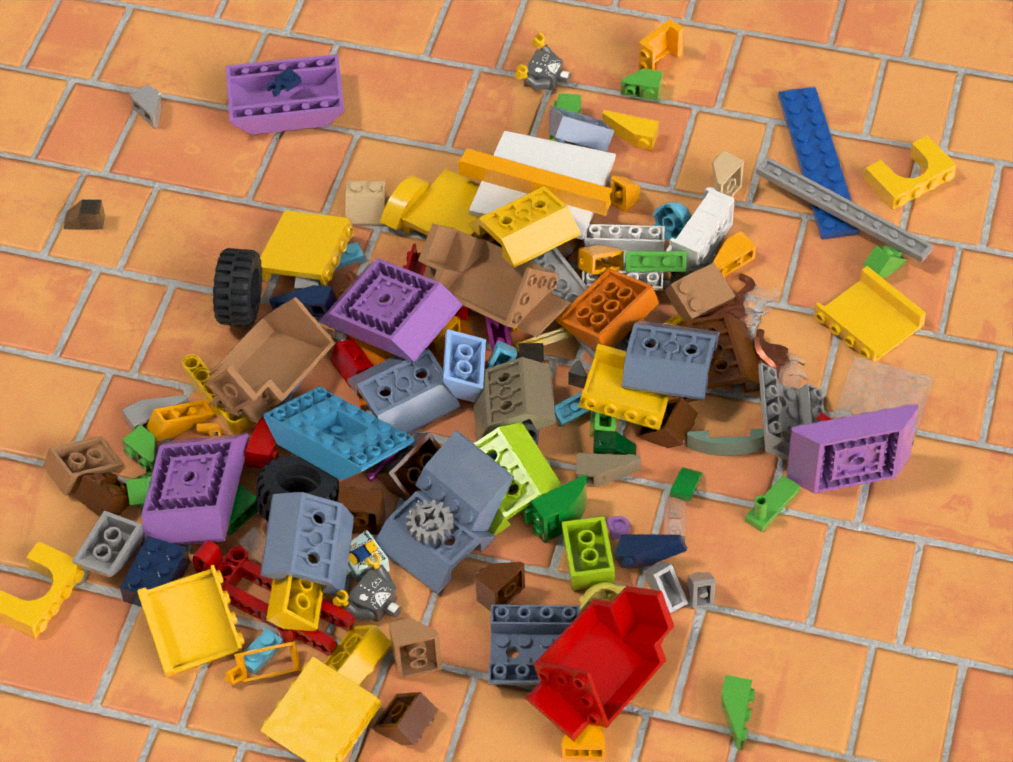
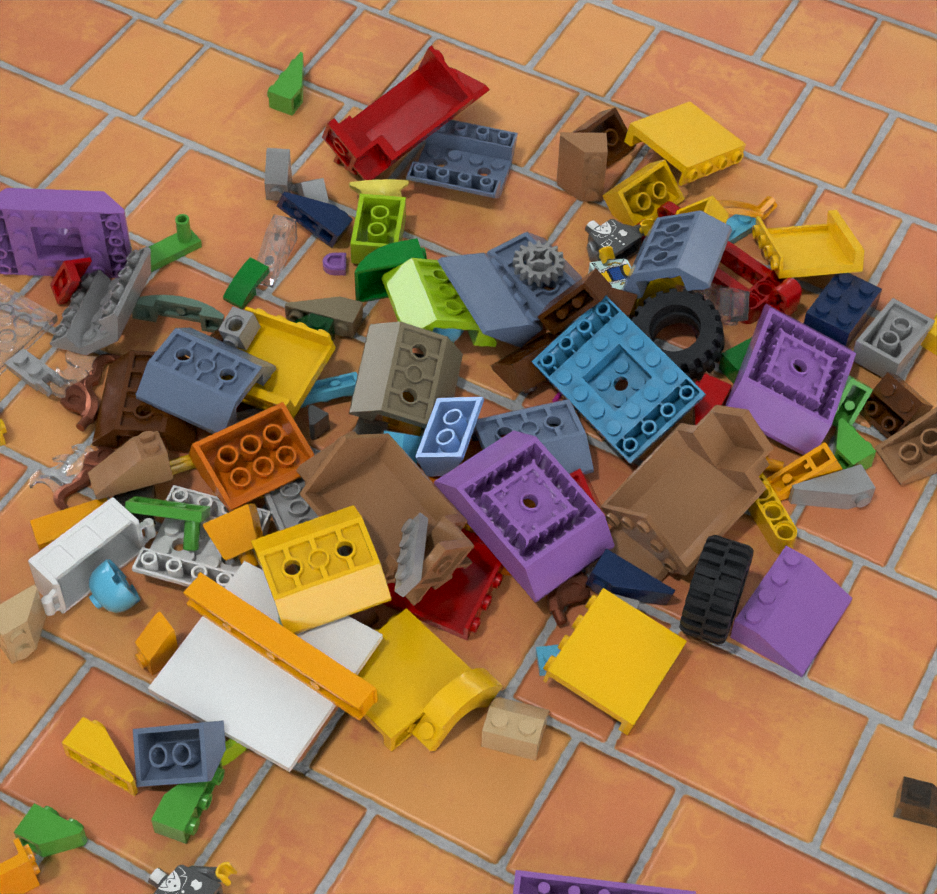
camera: 170 degrees left, 0 degrees up
(181, 319) = (791, 612): none -> medium lavender slope
(387, 472) = (574, 301): none -> reddish brown brick
(460, 238) = (411, 554): none -> light grey plate
(499, 583) = (479, 214): reddish brown slope -> none
(663, 400) = (239, 328): none -> light grey brick
(820, 365) = (33, 372): none -> light grey hinge

